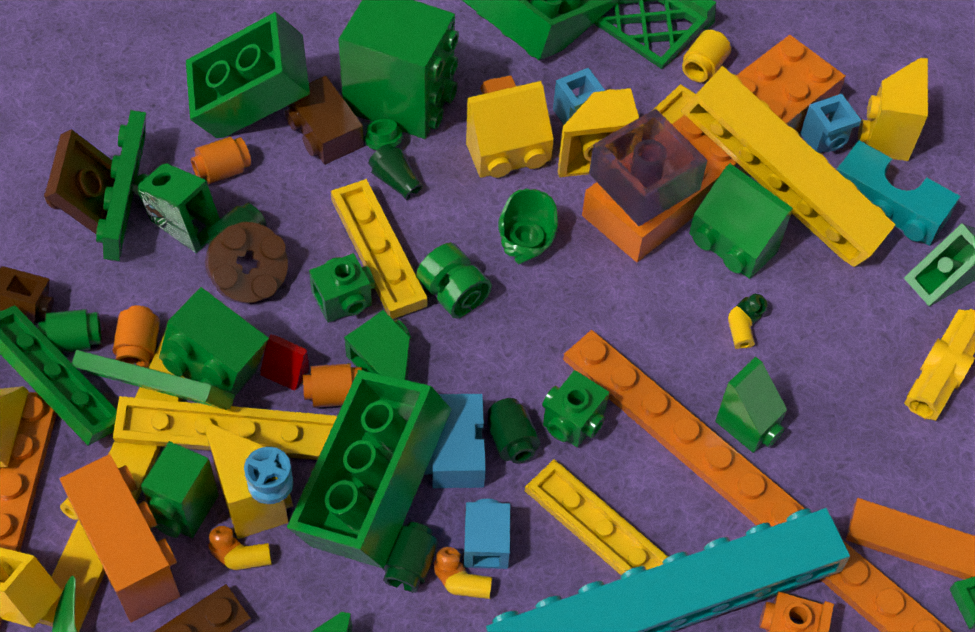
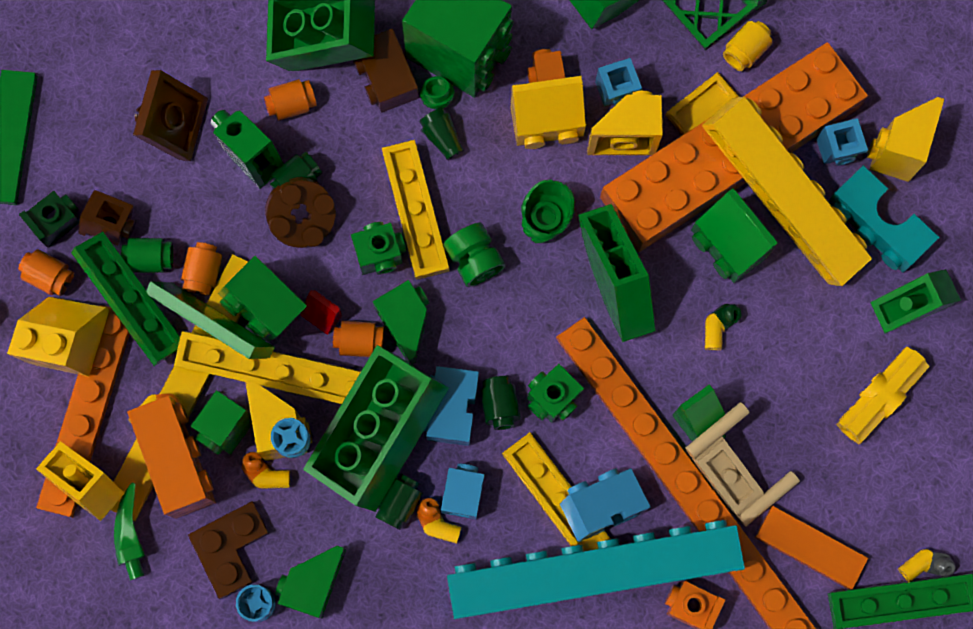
camera: 10 degrees right, 20 degrees up
(120, 196) = (198, 132): green plate -> none
(623, 272) = (618, 272): none -> green brick
(647, 167) = (657, 184): brick -> none
(661, 516) = (605, 503): none -> dark azure brick
(798, 465) = (729, 474): none -> tan plate

